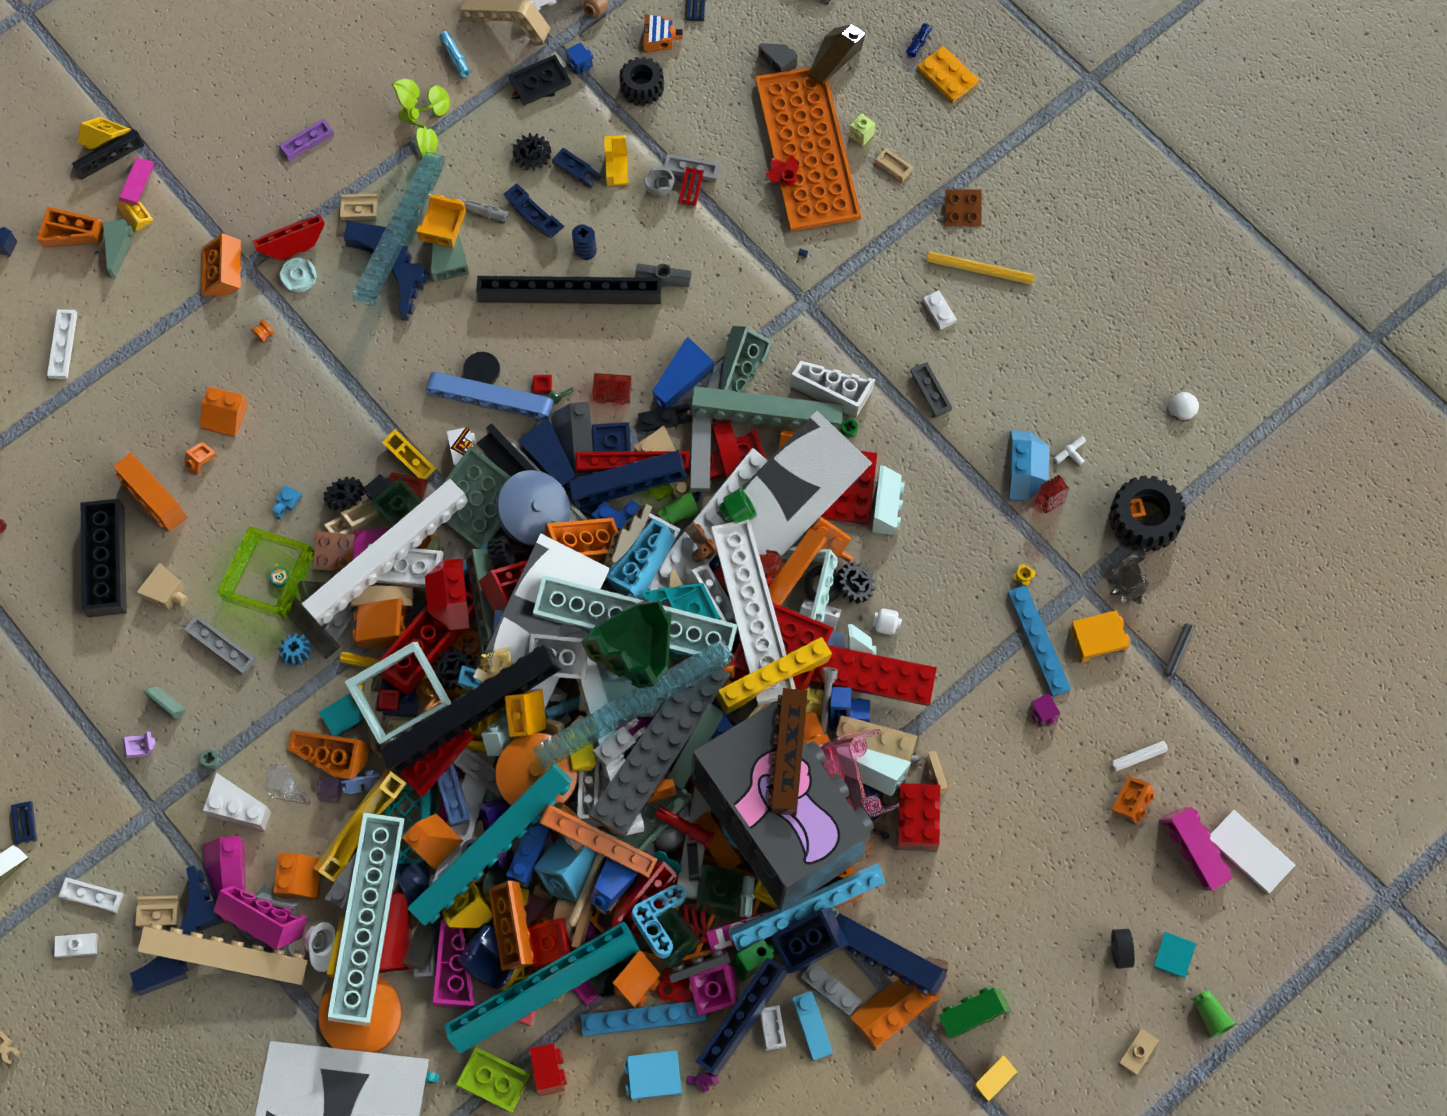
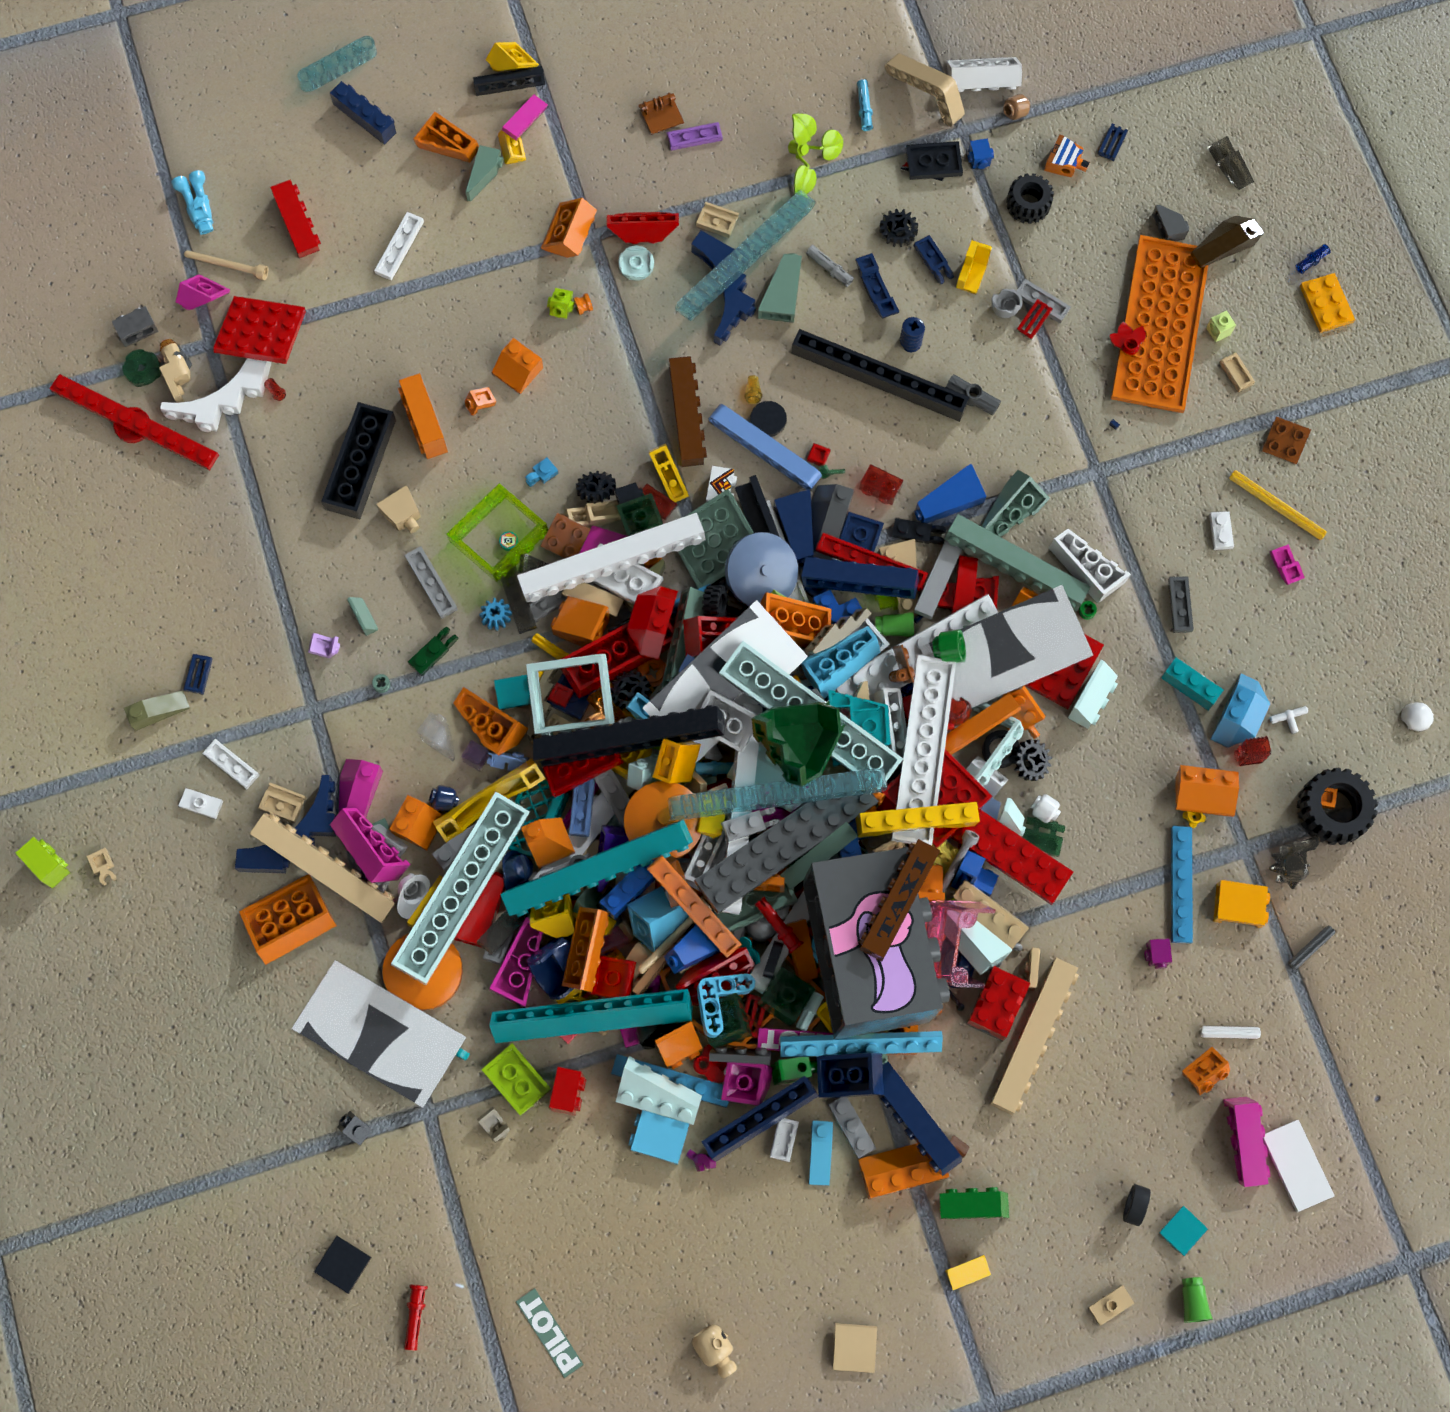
camera: 20 degrees right, 5 degrees up
(207, 1020) = (287, 919): none -> orange slope
(235, 805) = (386, 735): white wedge -> none
(241, 338) = (560, 303): none -> lime brick
(247, 709) = (432, 652): none -> dark green hinge
(266, 130) = (661, 113): none -> dark orange hinge
(314, 842) = (443, 798): none -> dark blue head
(401, 391) = (686, 411): none -> reddish brown brick
(442, 221) = (787, 263): light orange panel -> none
(457, 350) = (753, 391): none -> clear yellow cone
(504, 656) = (677, 705): clear yellow brick -> none
(634, 1035) = (656, 1093): none -> light aqua wedge
(902, 651) = (1046, 842): none -> clear green plate
(964, 834) = (1034, 1036): none -> tan brick
(971, 456) = (1192, 684): none -> teal brick
(1010, 318) = (1286, 564): none -> dark pink slope
(1025, 546) = (1206, 790): none -> orange slope

